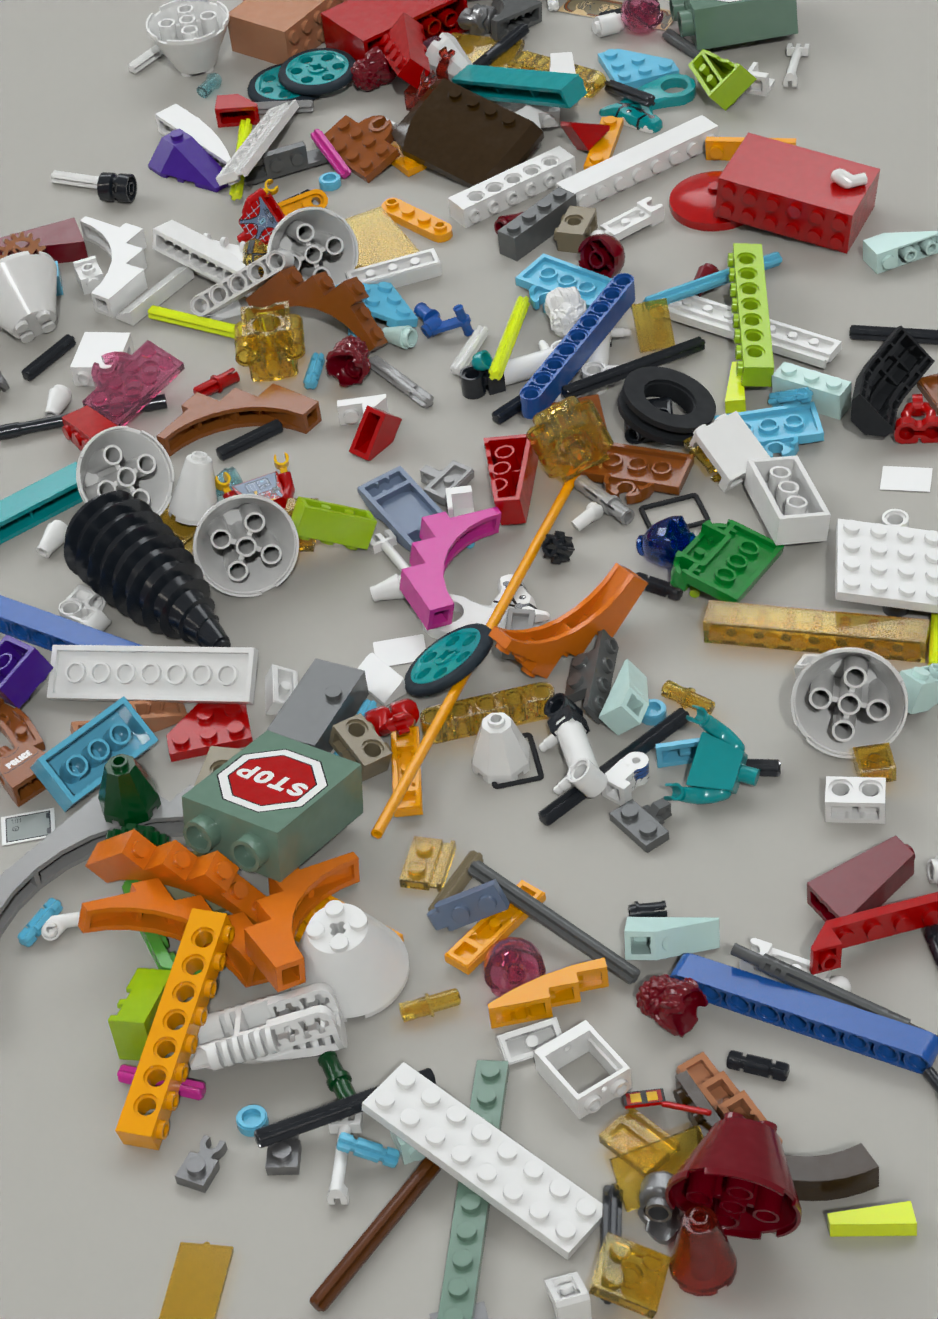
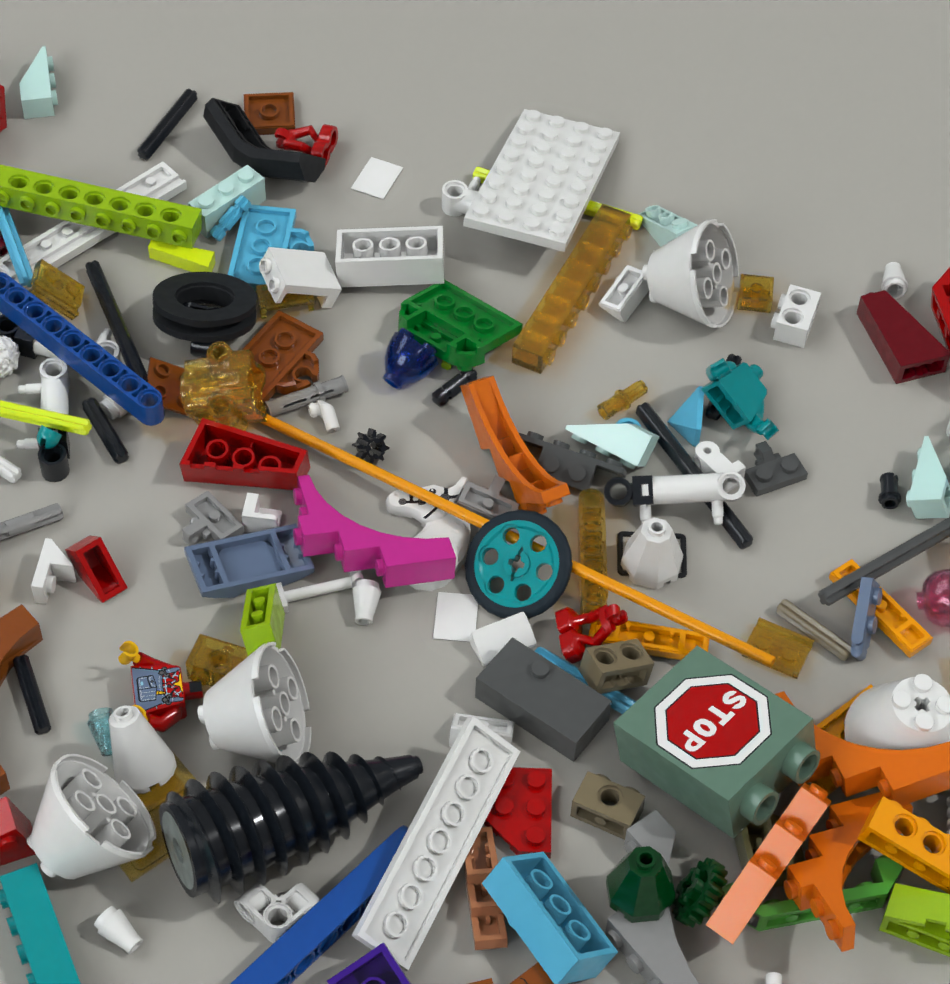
camera: 85 degrees left, 10 degrees up
(673, 500) = (344, 329): black piece -> none

